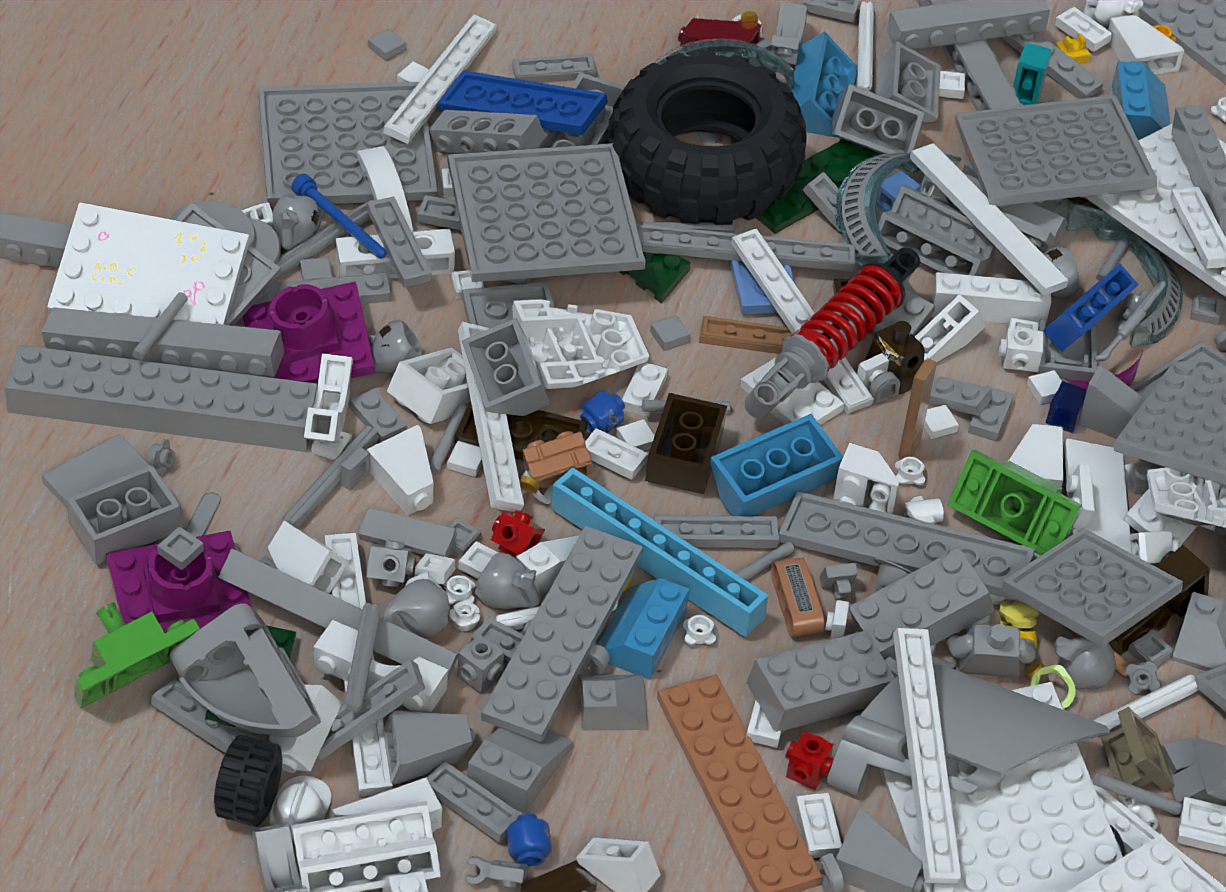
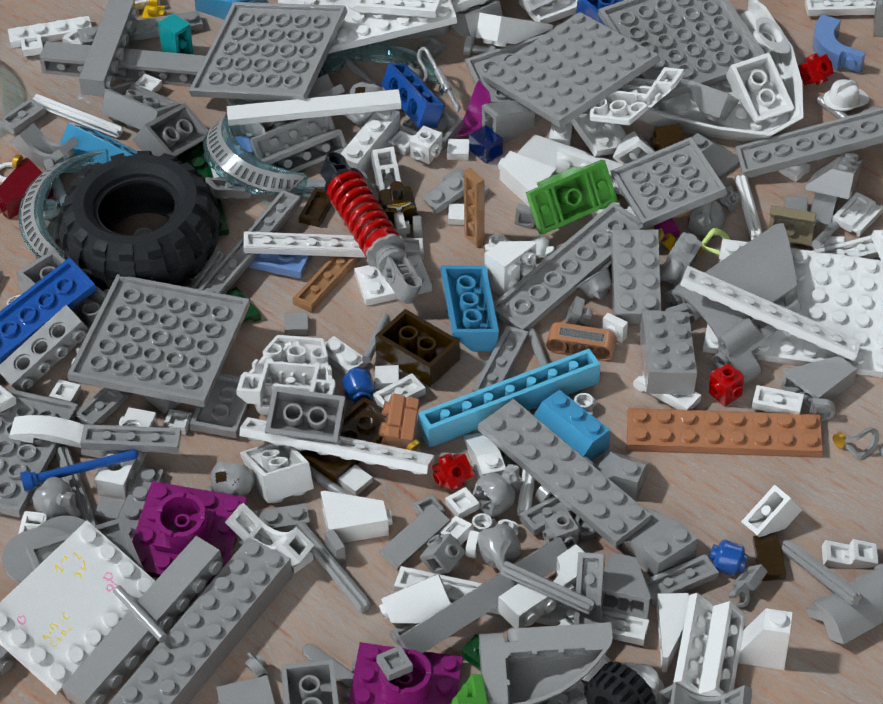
camera: 60 degrees left, 0 degrees up
(1048, 630) = (668, 227): none -> dark pink tile

